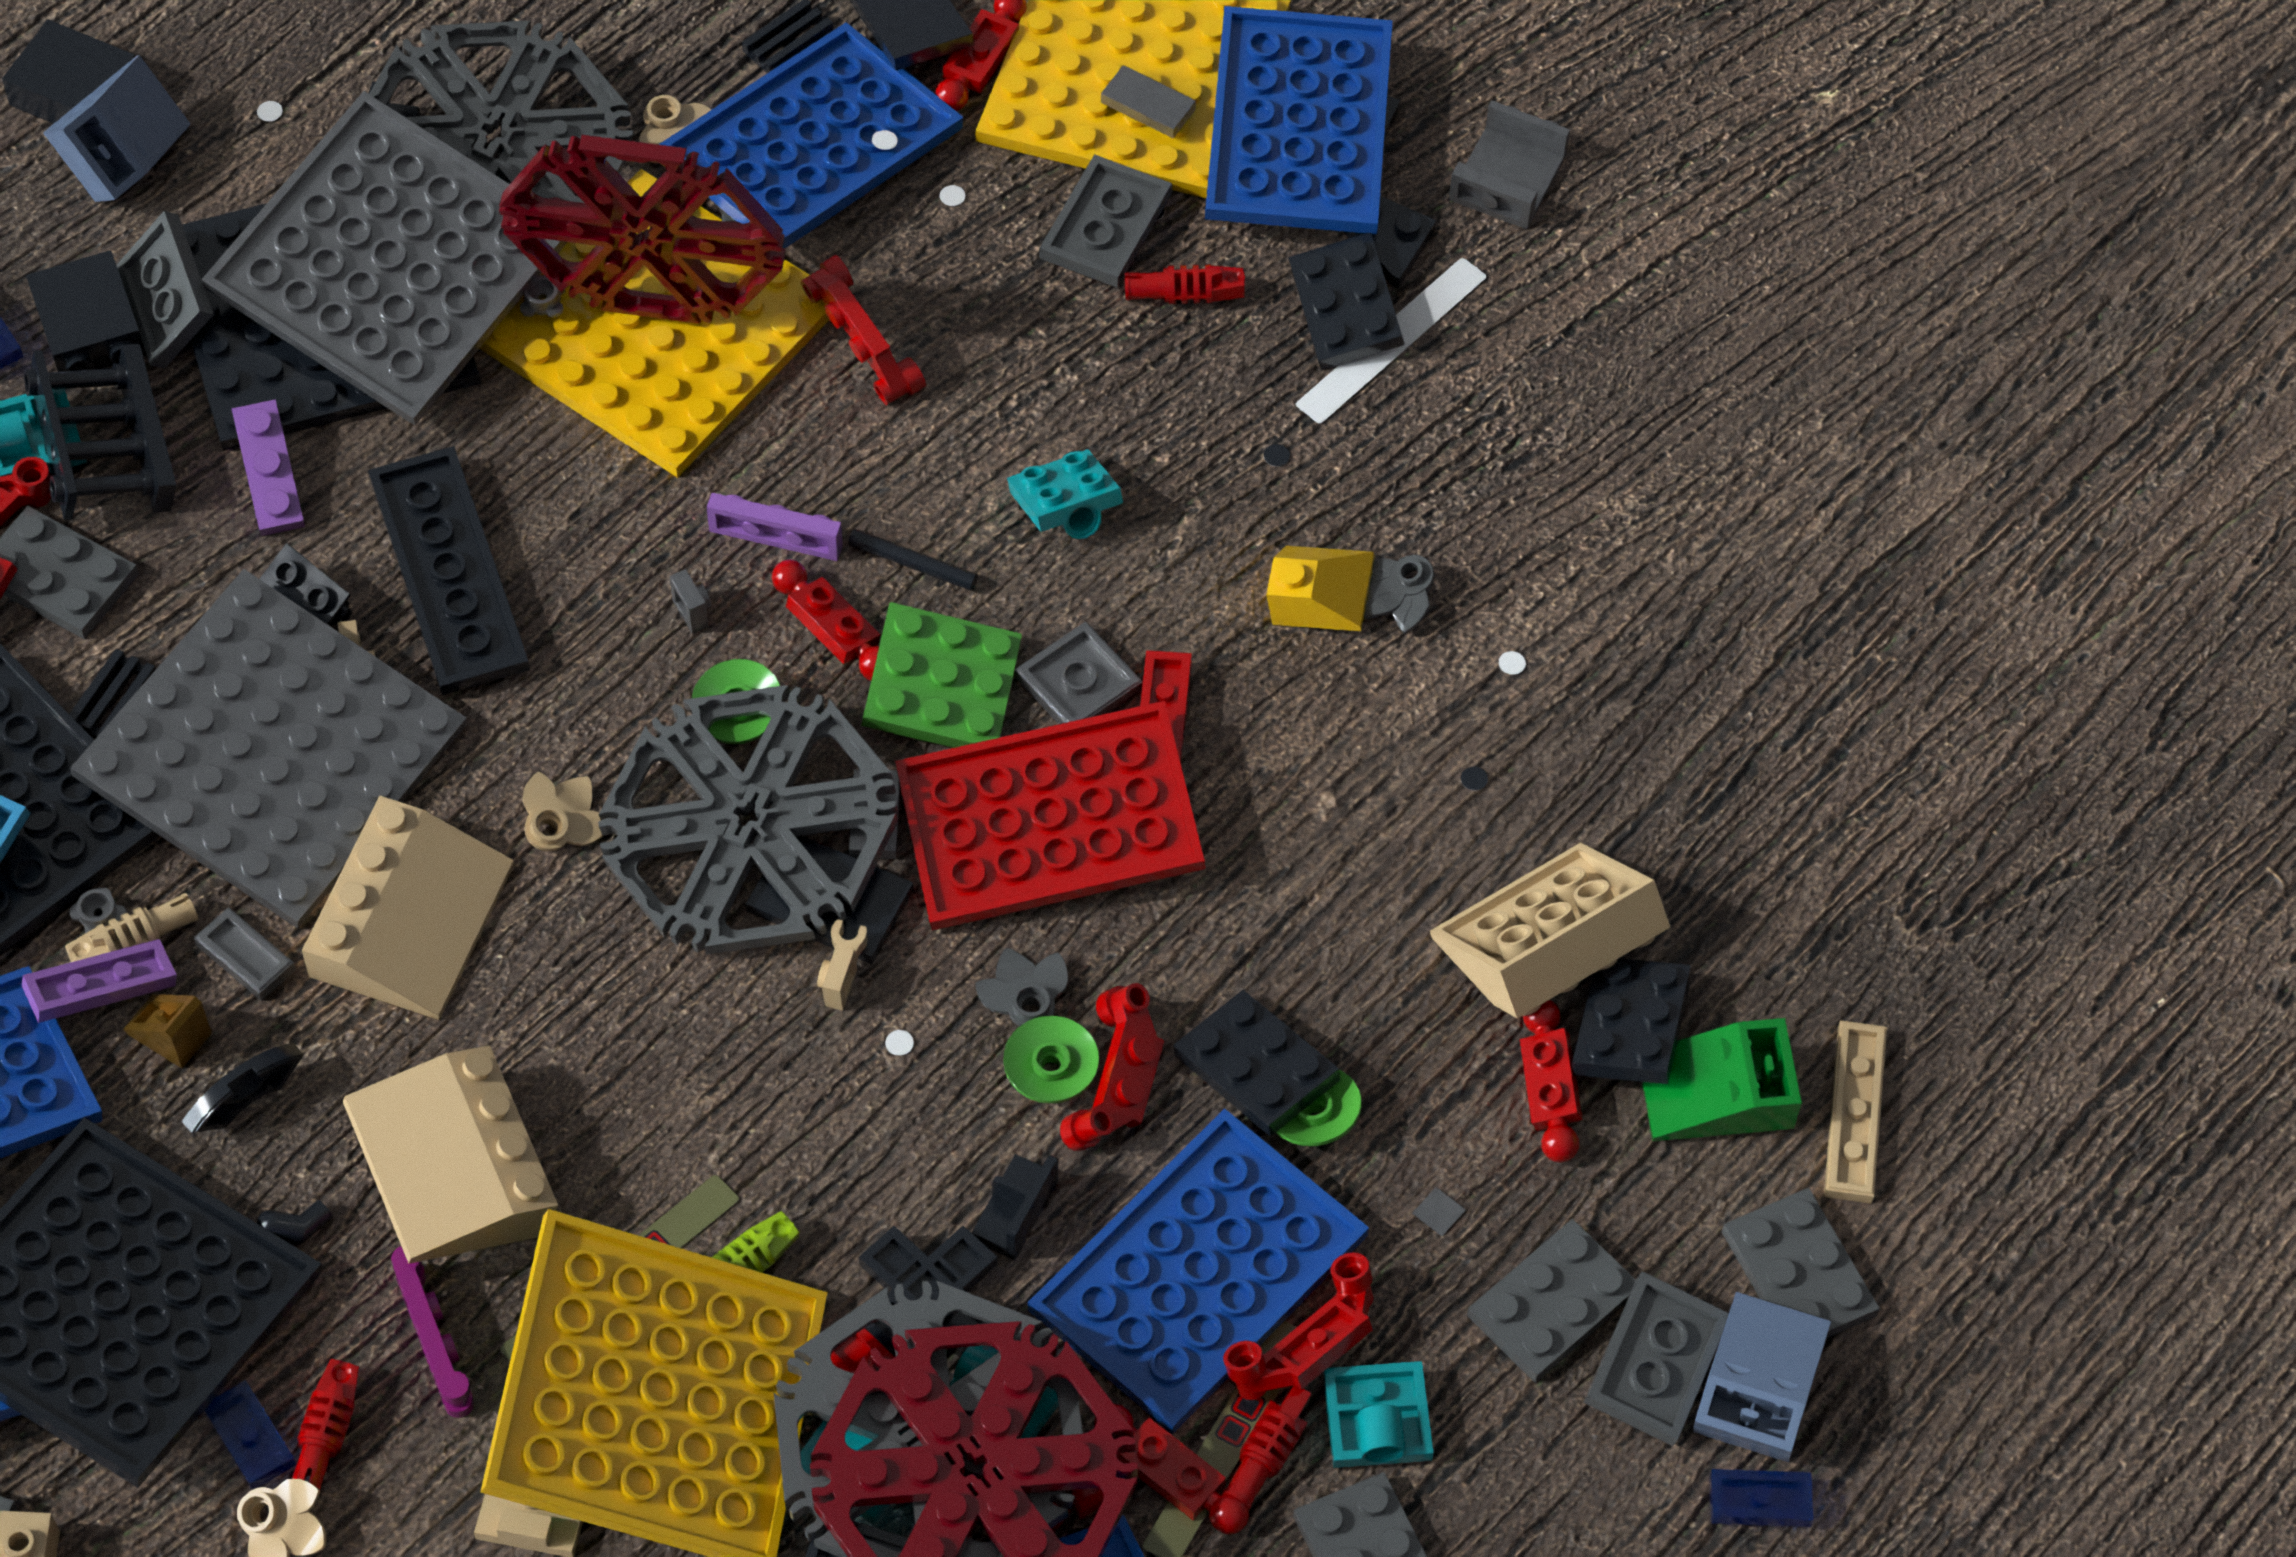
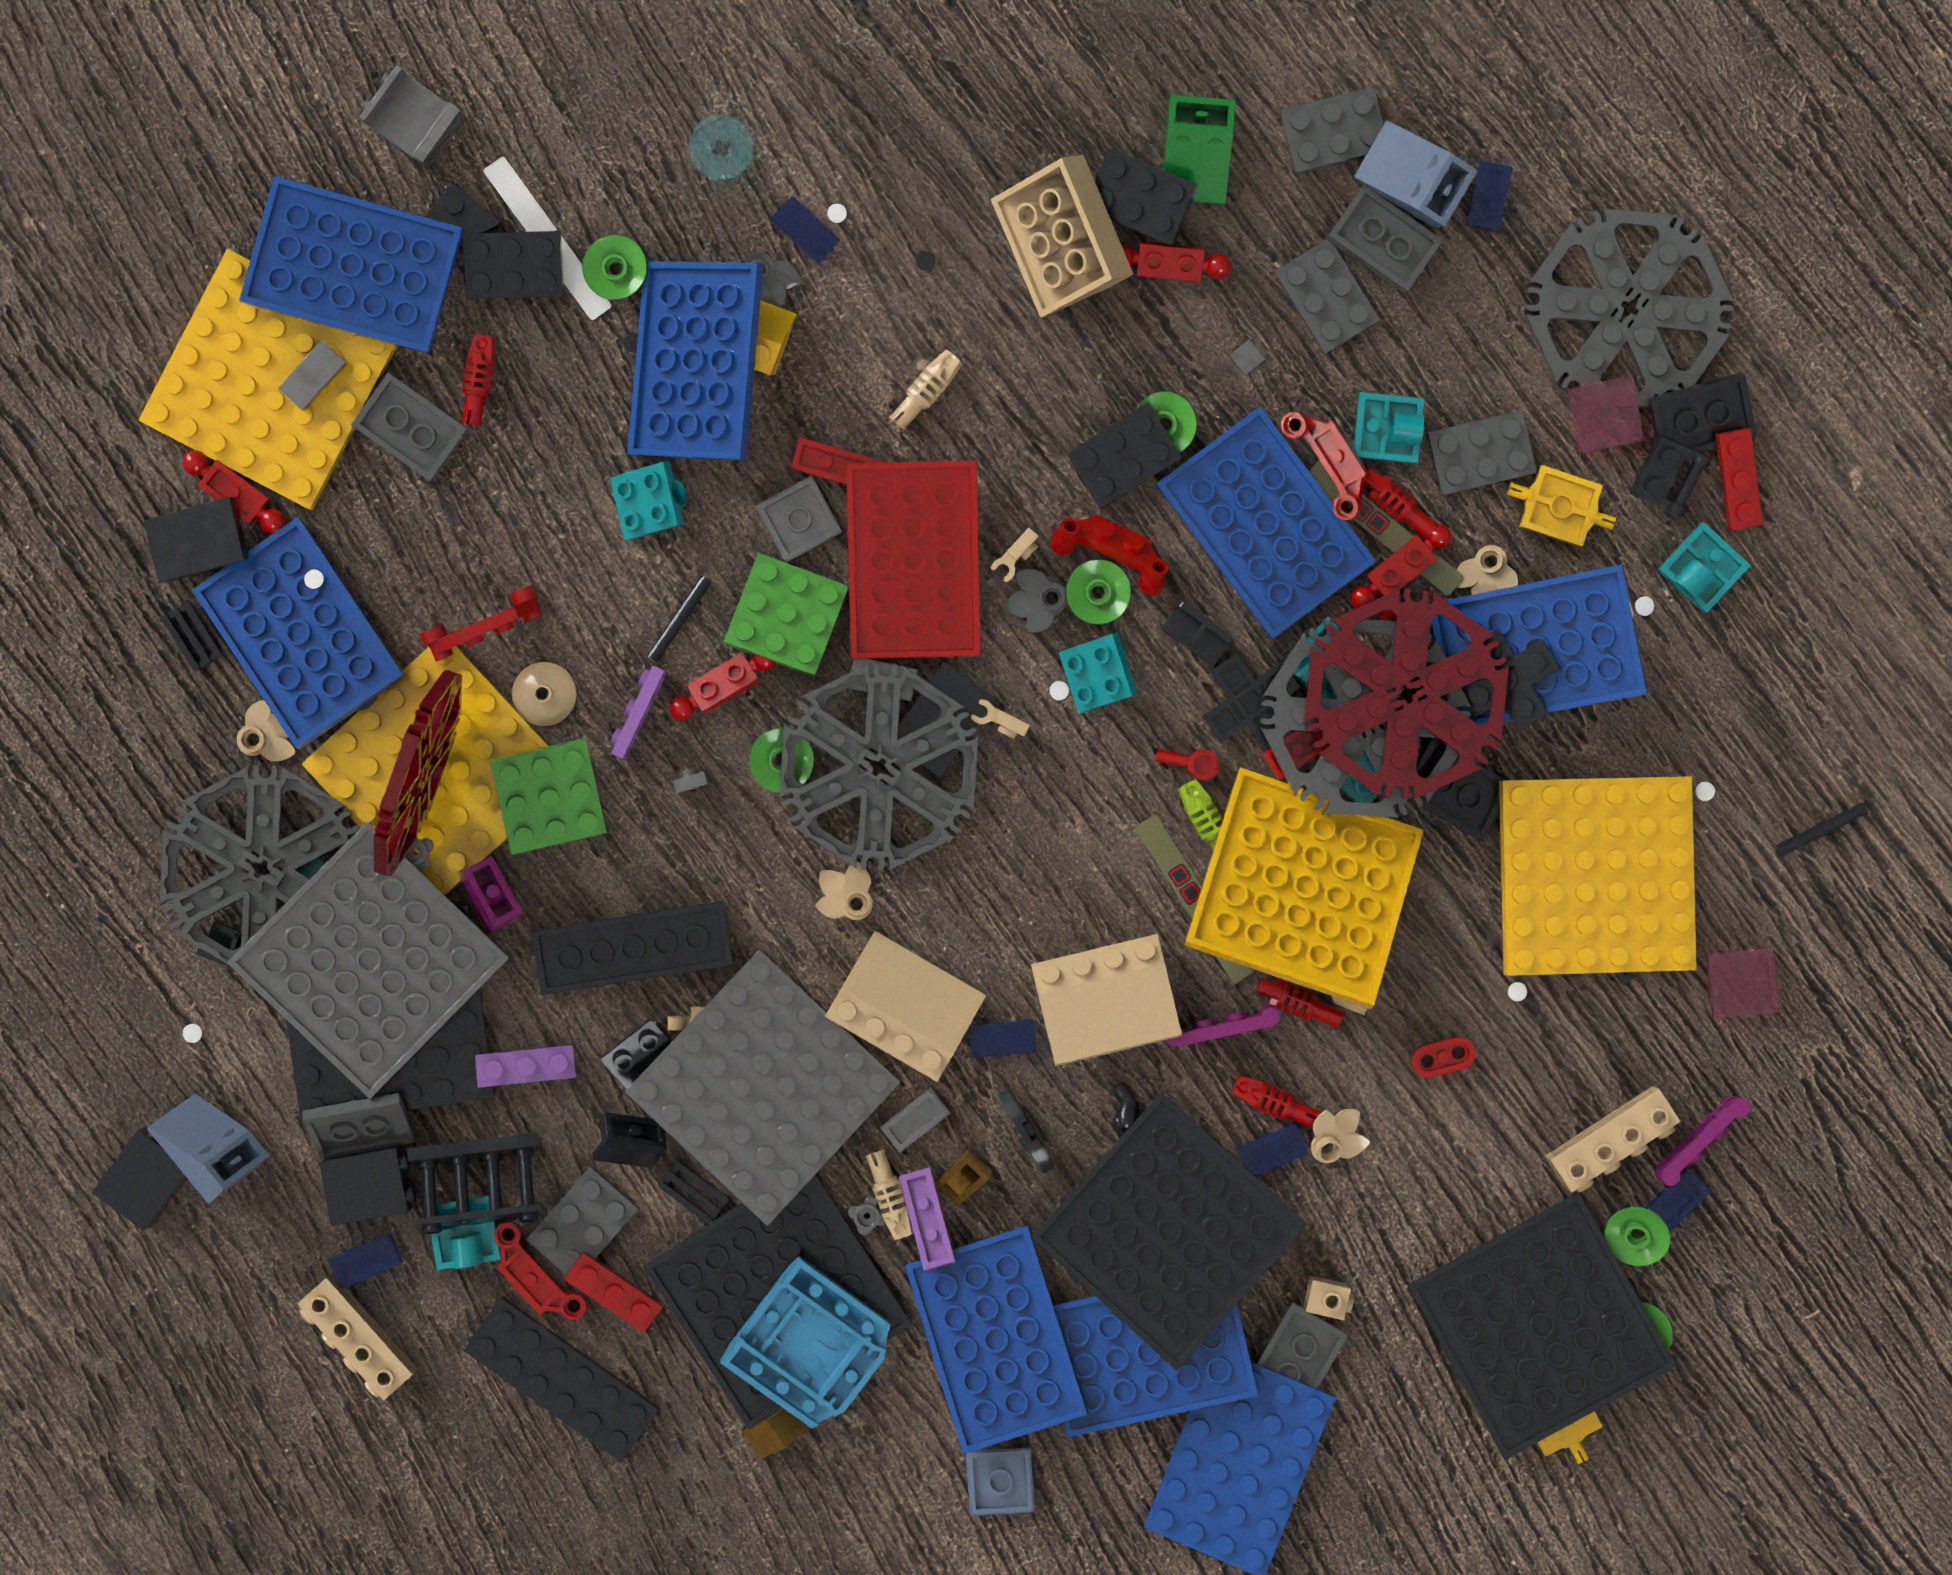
camera: 80 degrees left, 30 degrees up
(175, 593) = (630, 1140): none -> black panel
(375, 1040) = (1002, 1038): none -> clear blue plate
(476, 1440) = (1299, 1002): none -> red hinge
(496, 389) = (490, 895): none -> magenta brick
(641, 435) = (548, 796): none -> bright green plate
(786, 437) = (560, 698): none -> tan dish
(823, 1242) = (1201, 764): none -> red plate
(931, 1075) = (1098, 673): none -> teal plate
(952, 195) = (360, 536): white sticker -> none
(1091, 947) = (1023, 547): none -> tan plate
(1266, 508) = (695, 360): none -> blue plate
(1292, 799) = (927, 388): none -> tan hinge
(1375, 397) = (606, 253): none -> bright green dish
(1478, 626) = (805, 230): none -> clear blue plate
(1559, 531) = (727, 130): none -> clear light blue plate
(1855, 1112) = (1226, 63): tan tile -> none

